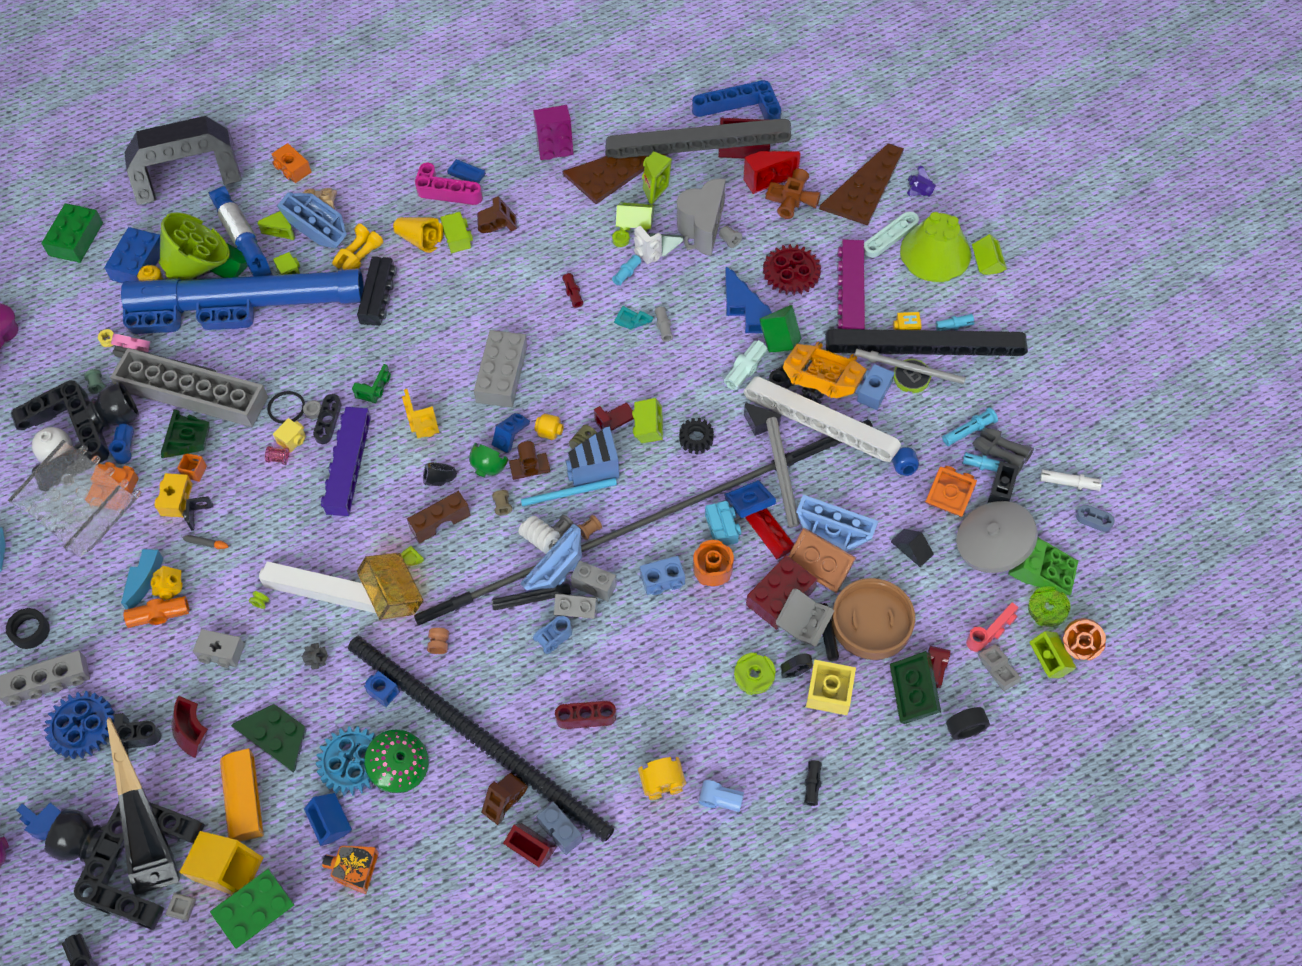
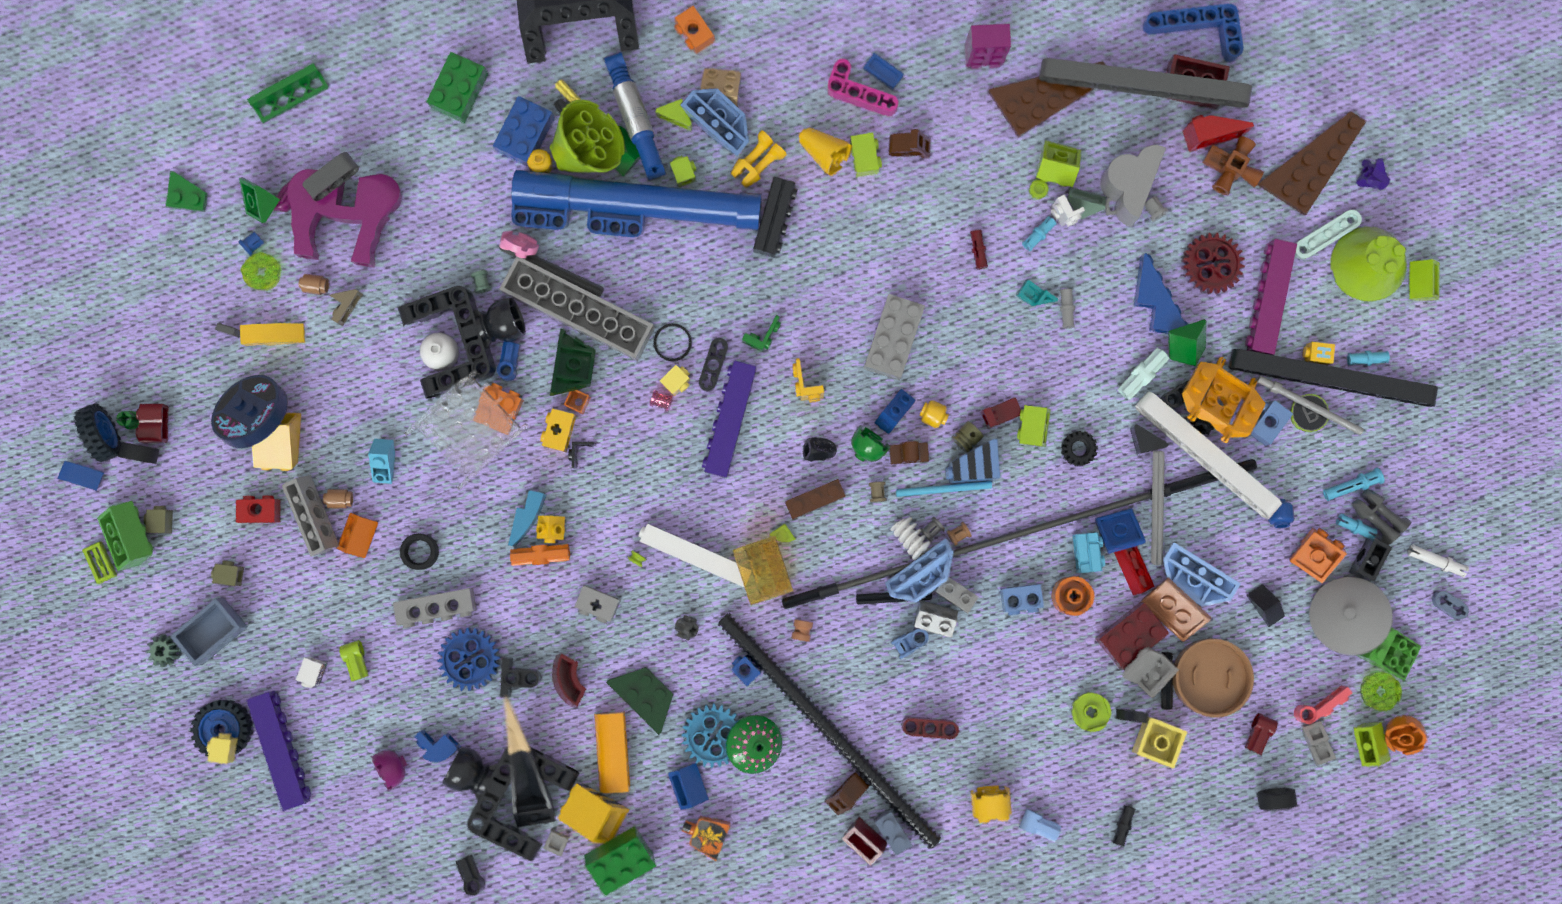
camera: 10 degrees right, 25 degrees up
(104, 334) = (498, 225): light yellow bush -> none
(205, 542) = (586, 484): dark grey piece -> none
(311, 409) = (699, 350): light grey tile -> none
(656, 175) = (1088, 120): lime slope -> none
(915, 687) = (1236, 755): dark green plate -> none

